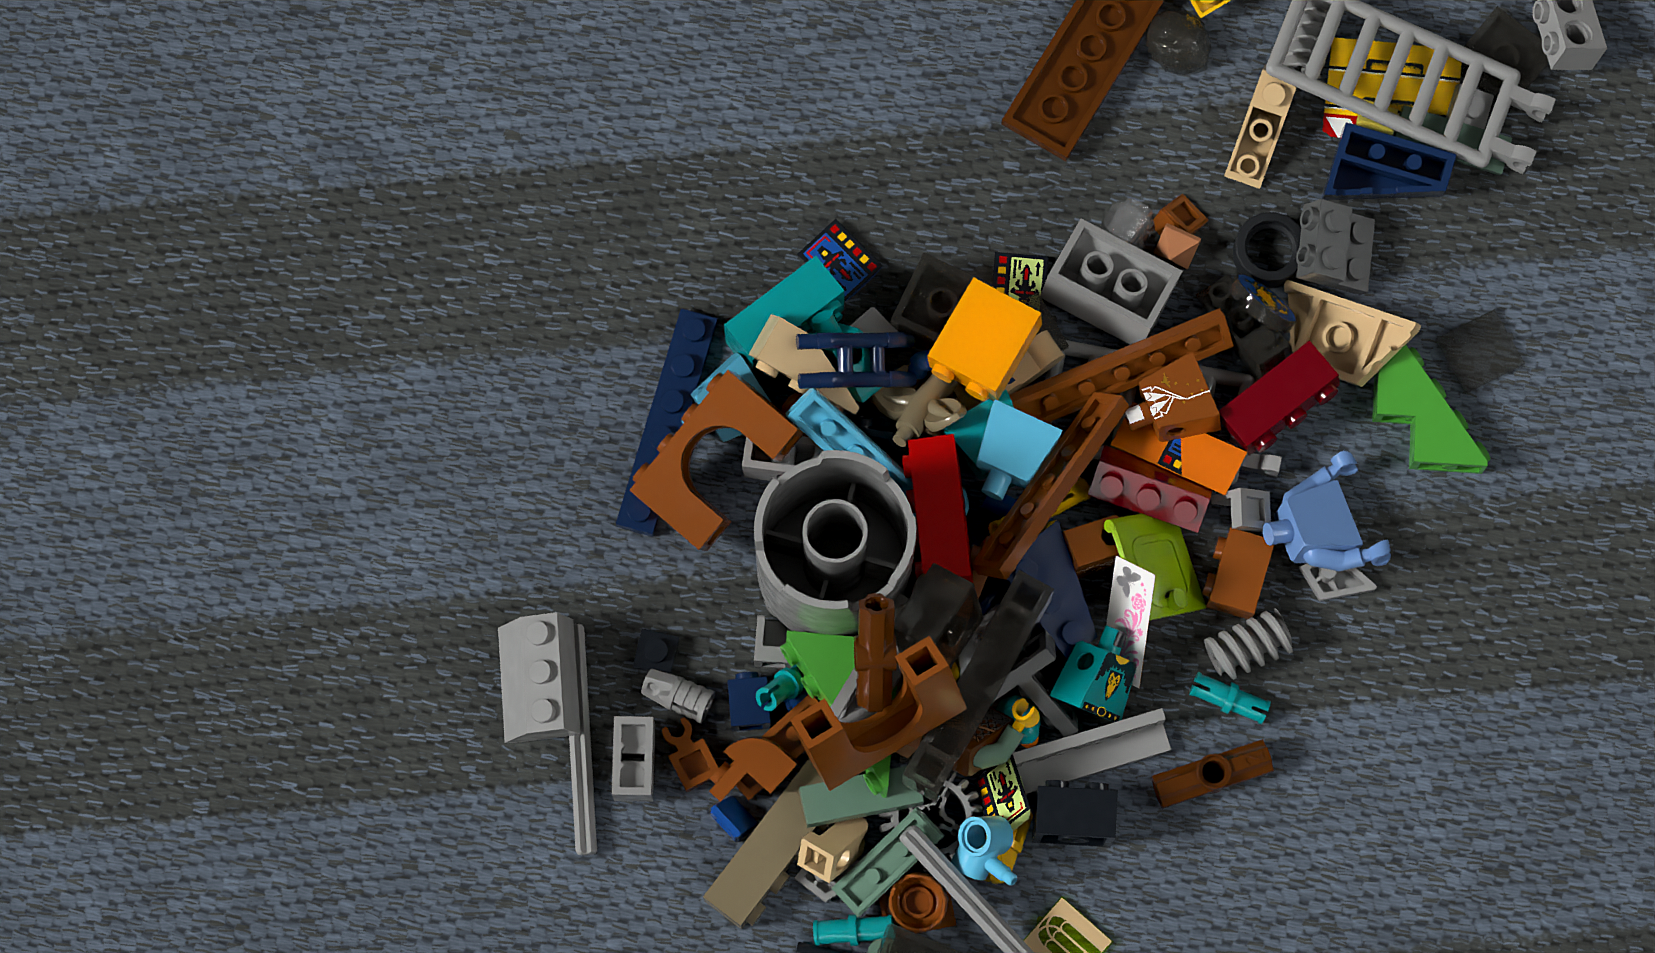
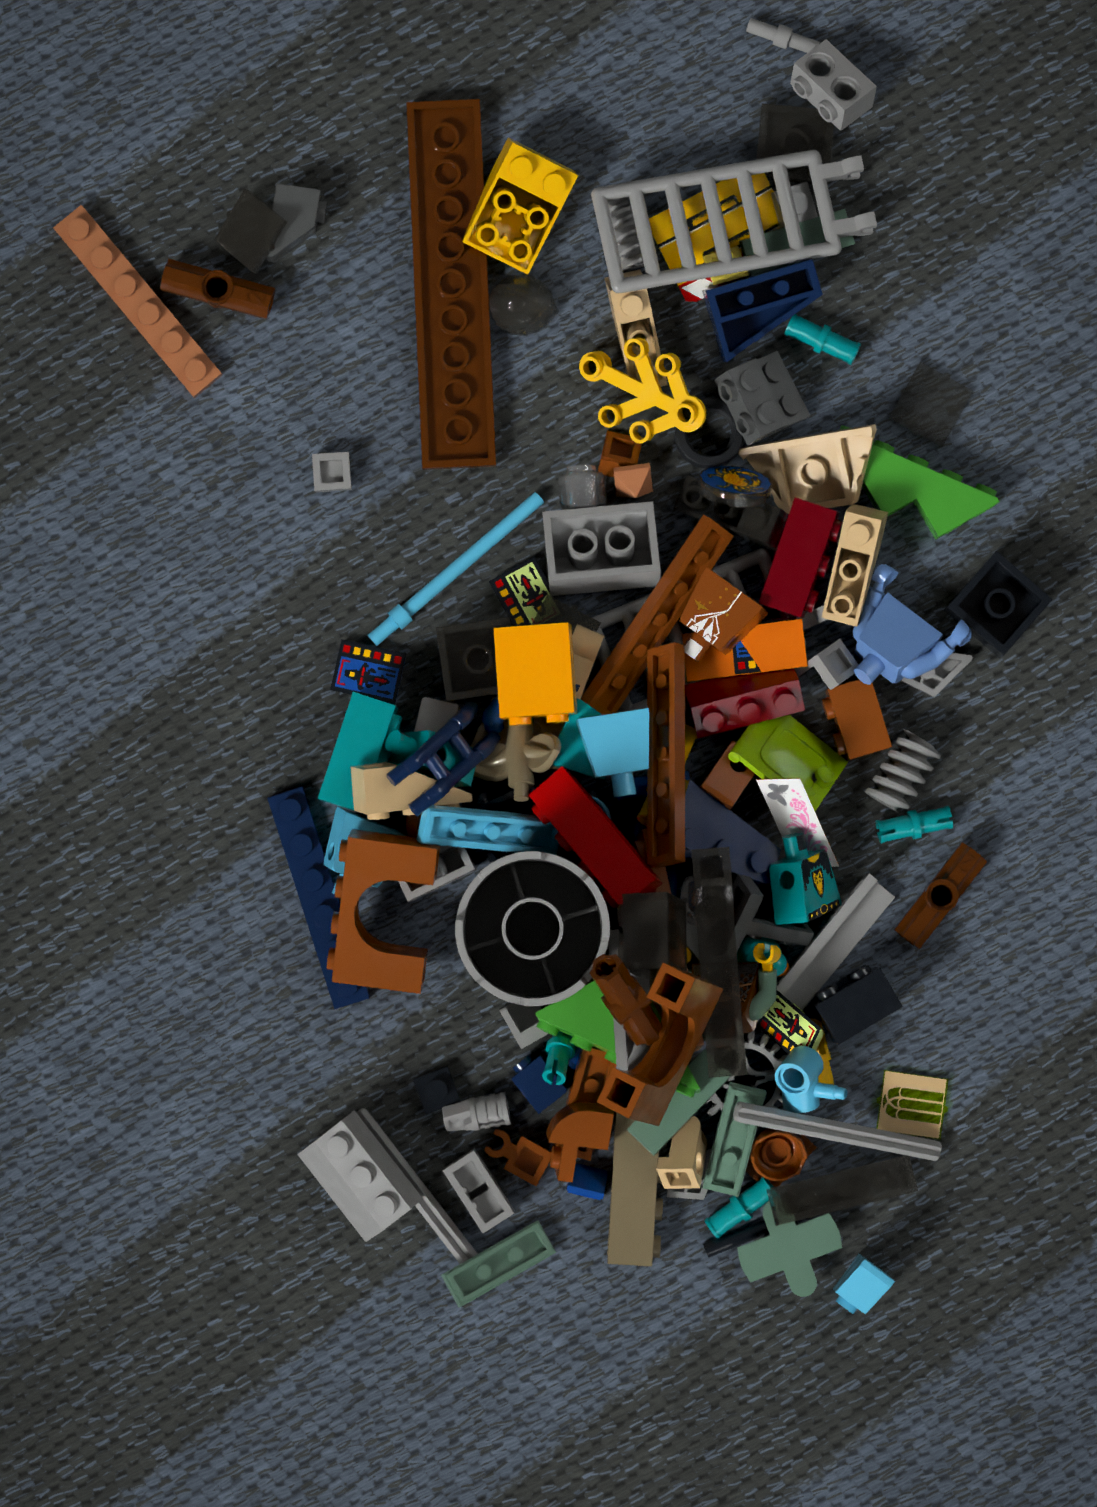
camera: 35 degrees left, 10 degrees up
(607, 835) = (498, 1263): none -> sand green tile
(900, 232) = (401, 616): none -> medium azure bar
(922, 75) = (331, 472): none -> light grey plate
(1239, 178) = (647, 392): none -> yellow plant
(1324, 434) = (854, 564): none -> tan slope
(1421, 234) = (822, 339): none -> teal pin
(1429, 554) = (998, 604): none -> black brick

